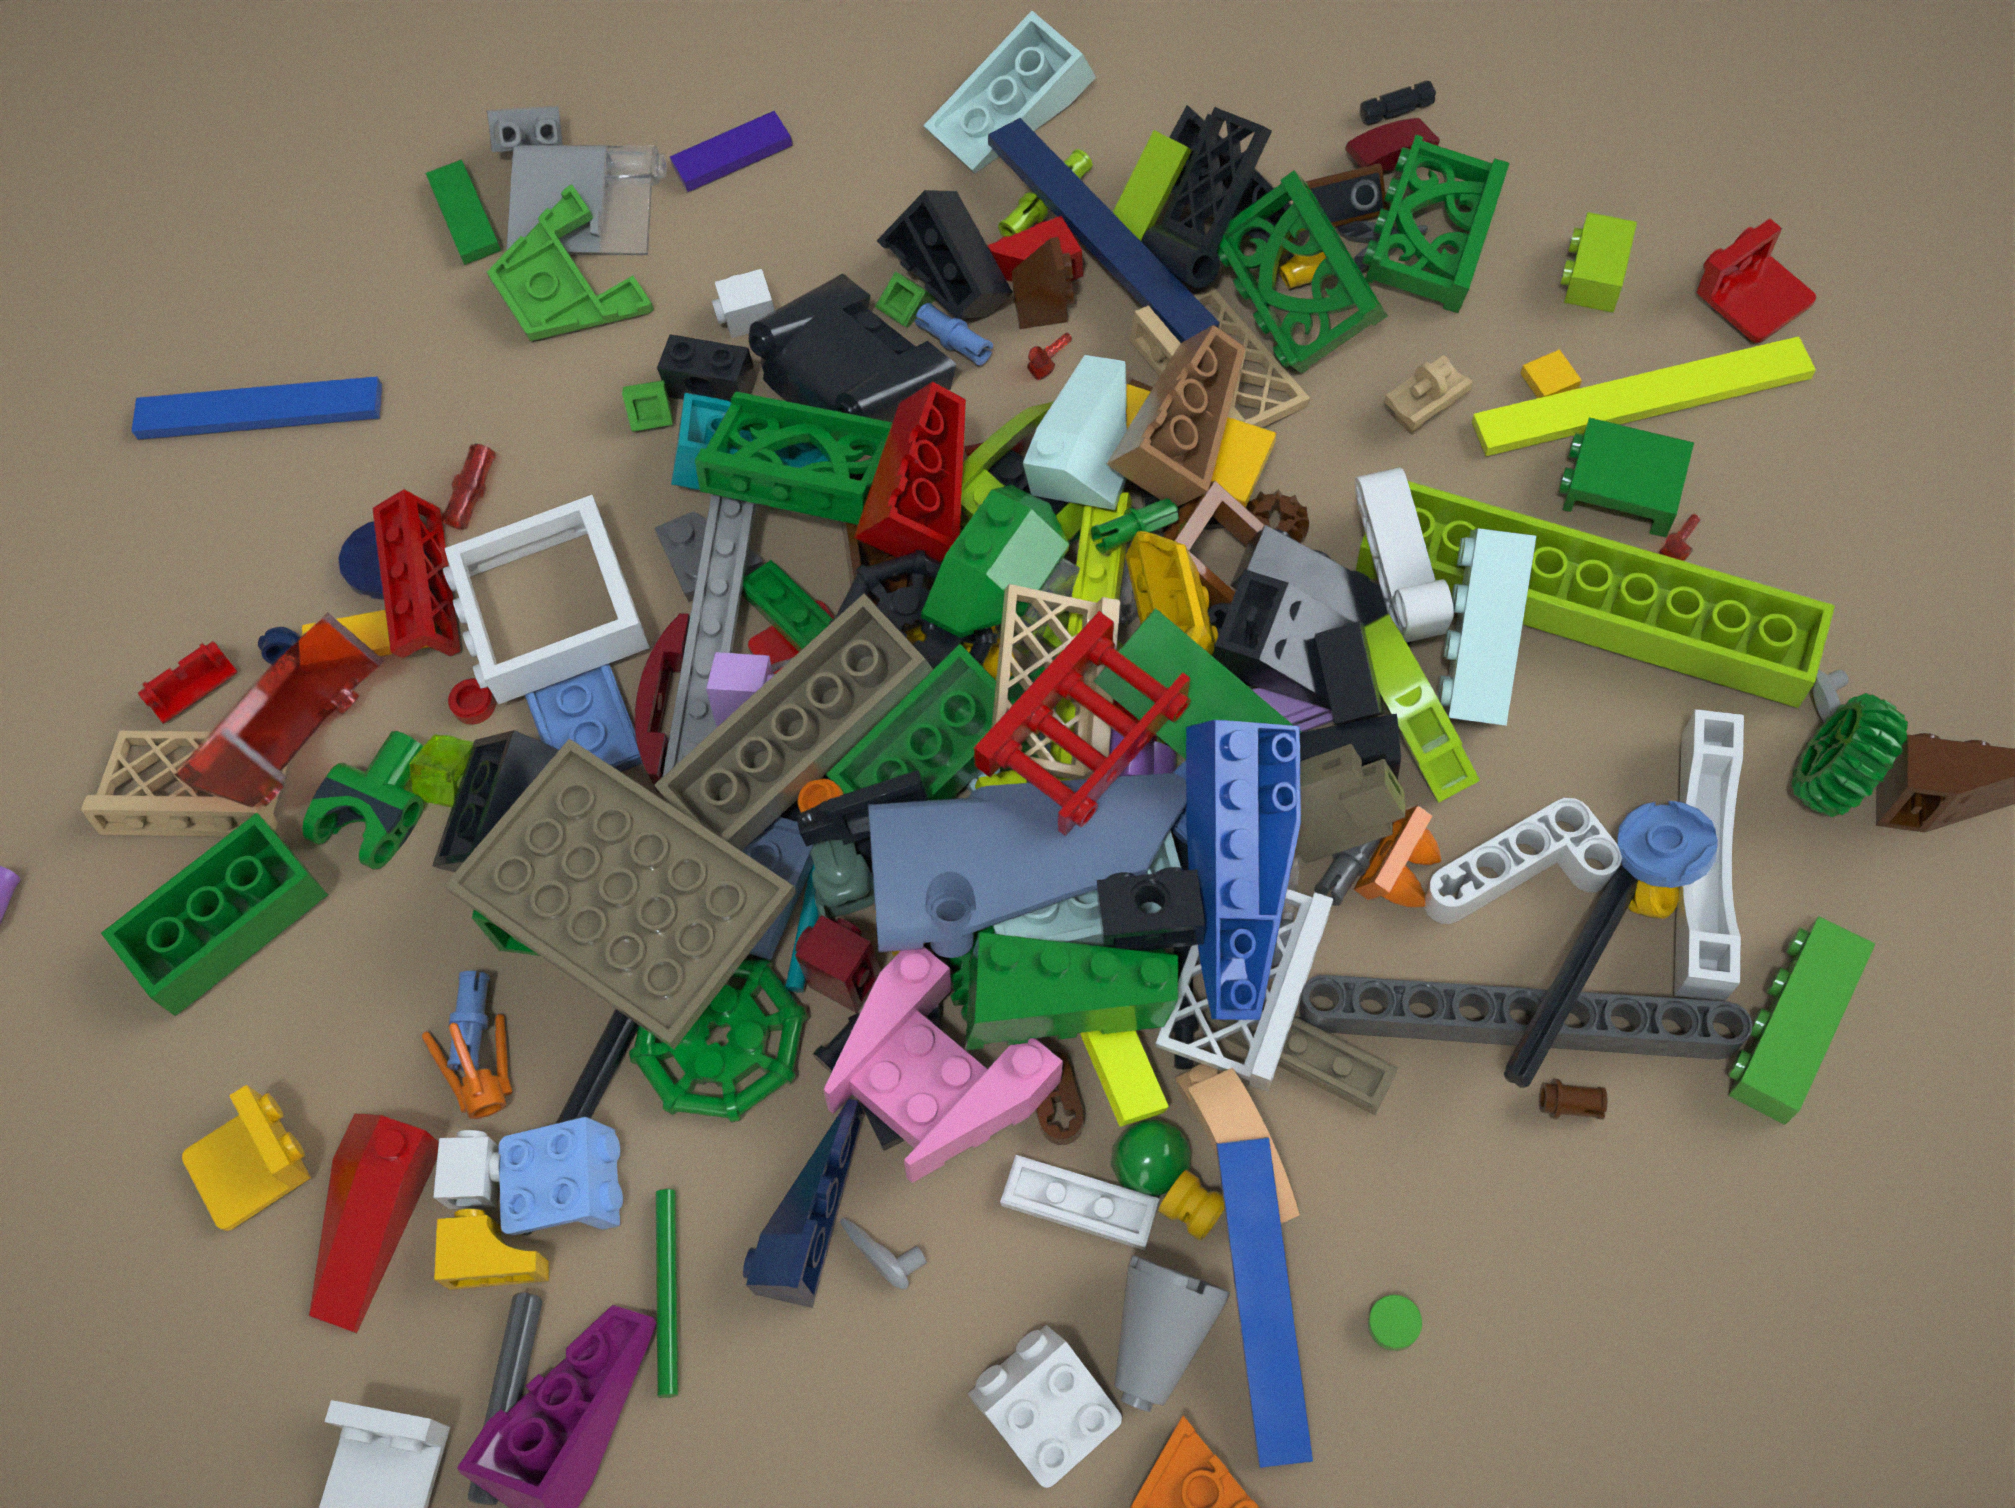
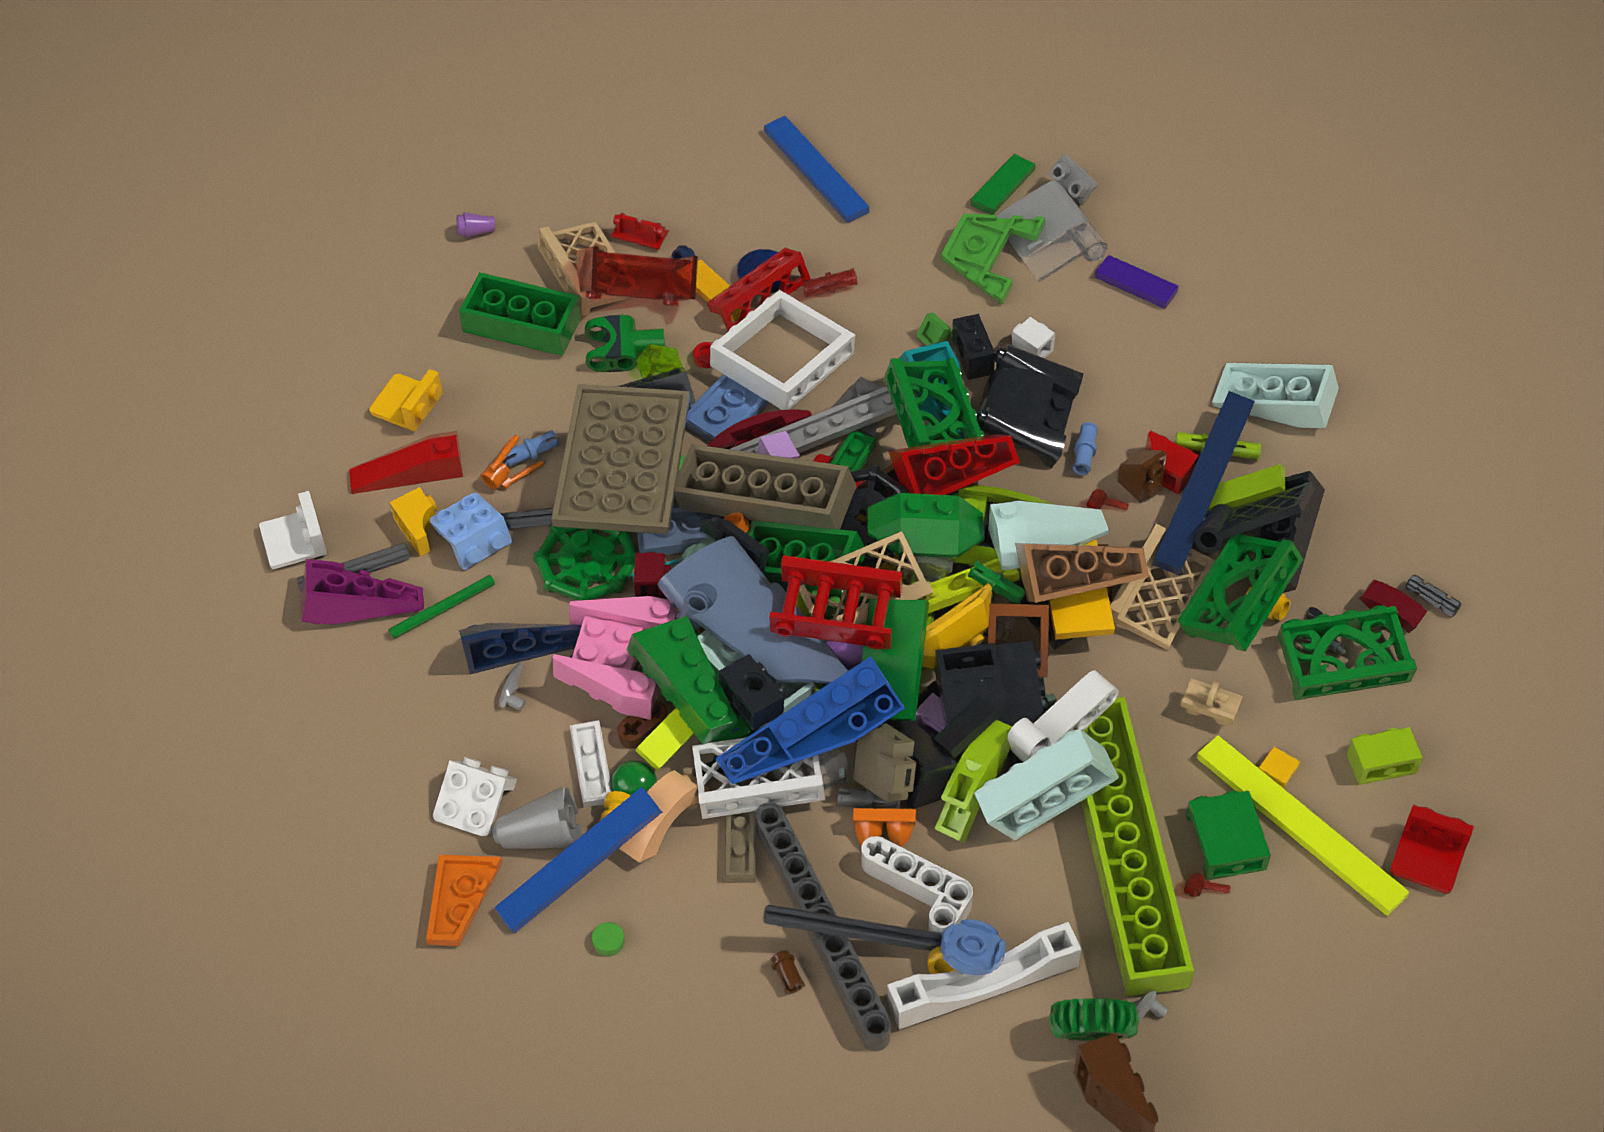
camera: 55 degrees right, 10 degrees down
(467, 1171) = (451, 487): white brick -> none
(903, 299) = (1096, 412): bright green slope -> none
(948, 253) = (1130, 416): black wedge -> none
(1292, 513) = (1063, 675): reddish brown gear -> none
(1351, 194) = (1328, 594): slope -> none
(1800, 1020) = (908, 1068): bright green brick -> none

